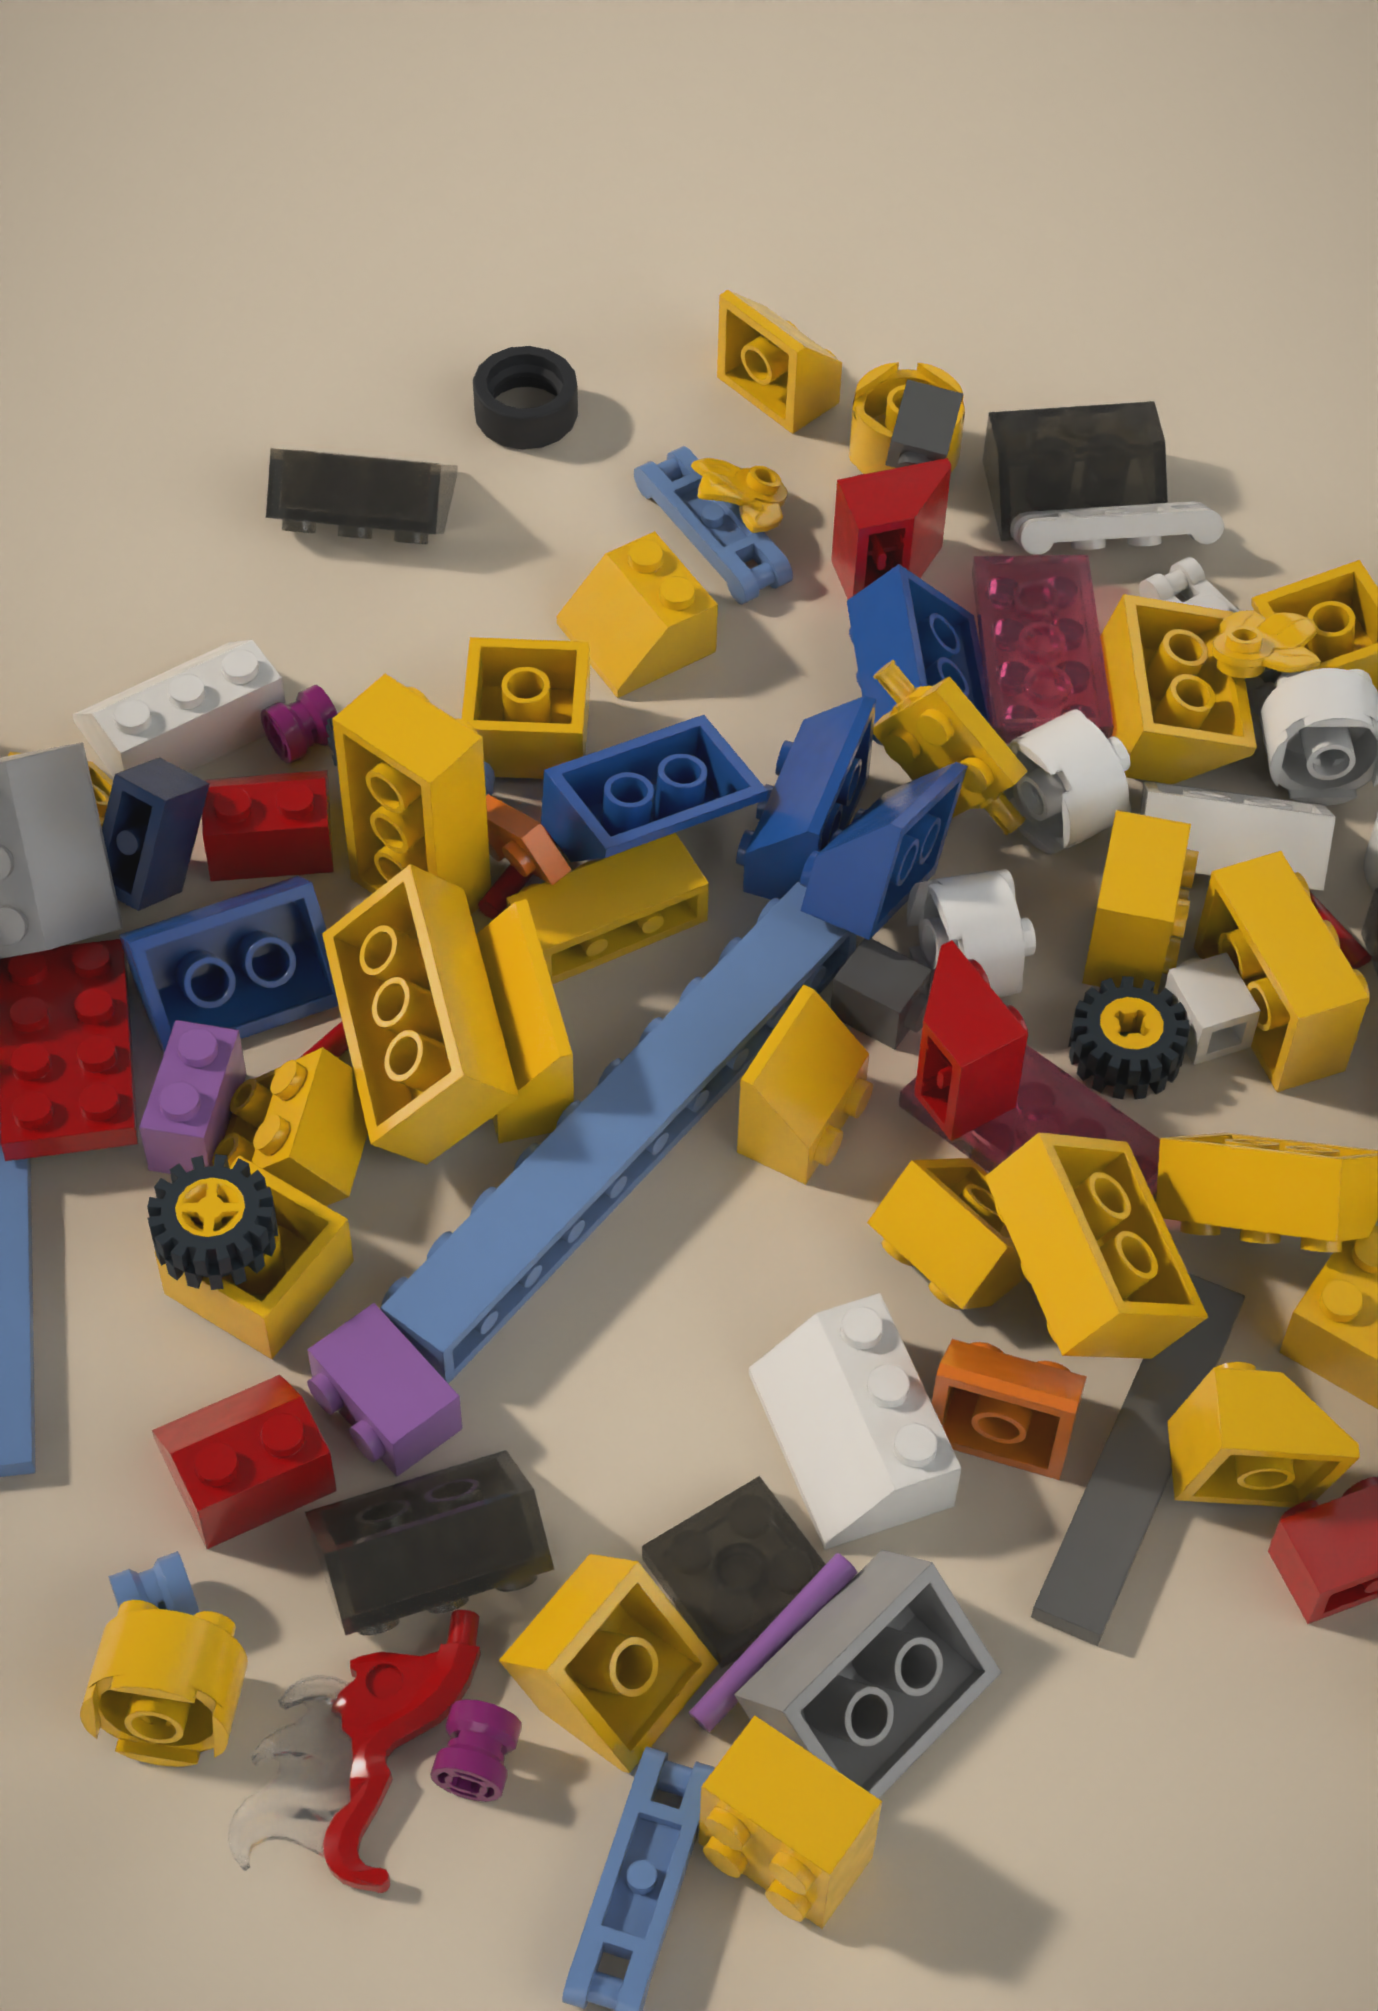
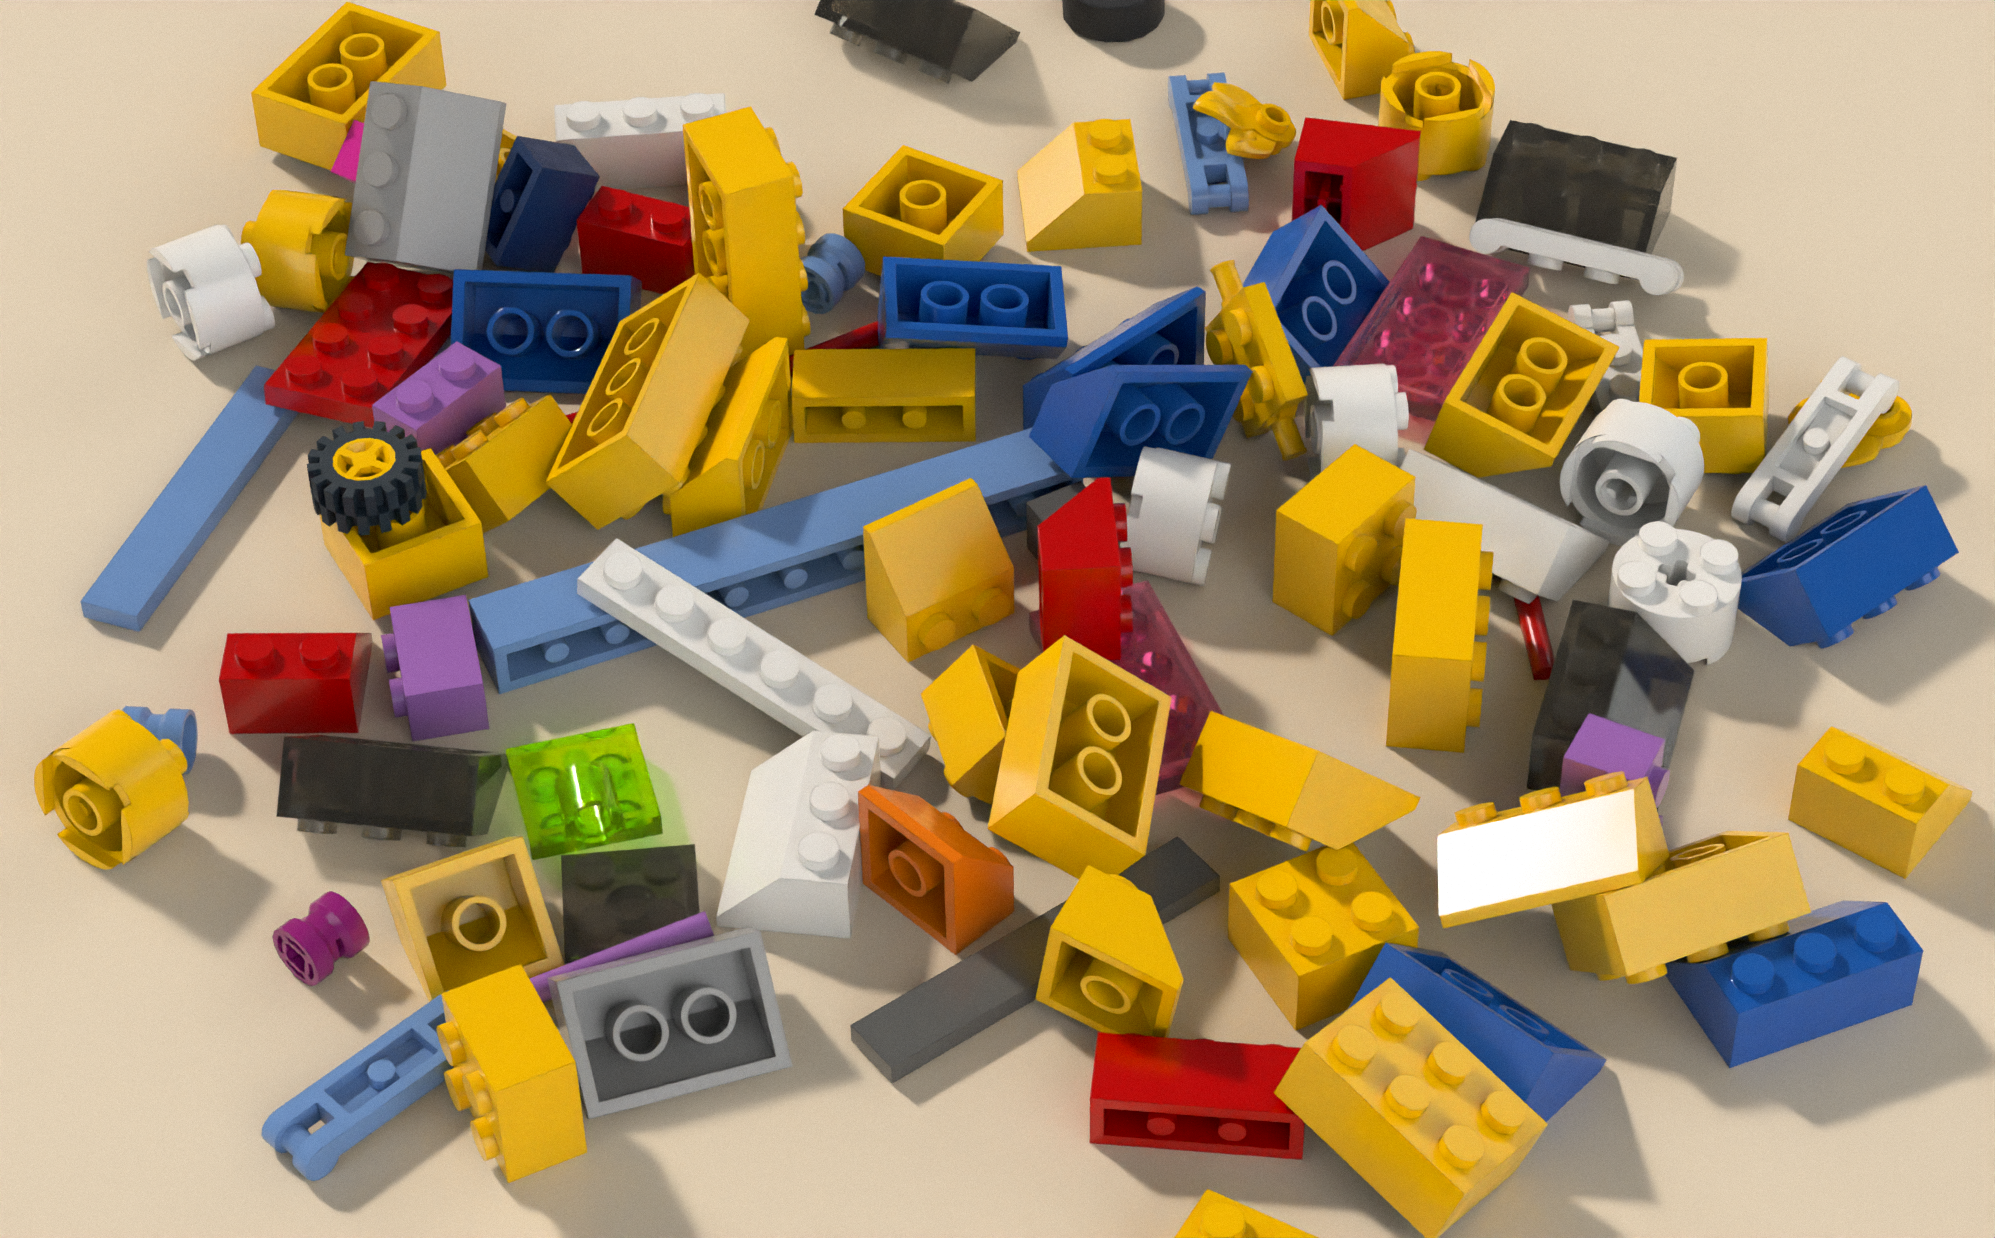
camera: 30 degrees right, 10 degrees down
(338, 1751) = (221, 906): piece -> none
(523, 843) = (833, 312): orange plate -> none
(615, 1464) = (583, 791): none -> clear neon green plate
(683, 1255) = (745, 657): none -> white plate
(923, 425) = (1422, 99): dark grey brick -> none
(1140, 1058) = (1270, 648): black wheel -> none
(1216, 1004) = (1360, 651): white brick -> none
(1253, 642) = (1615, 373): yellow plate -> none

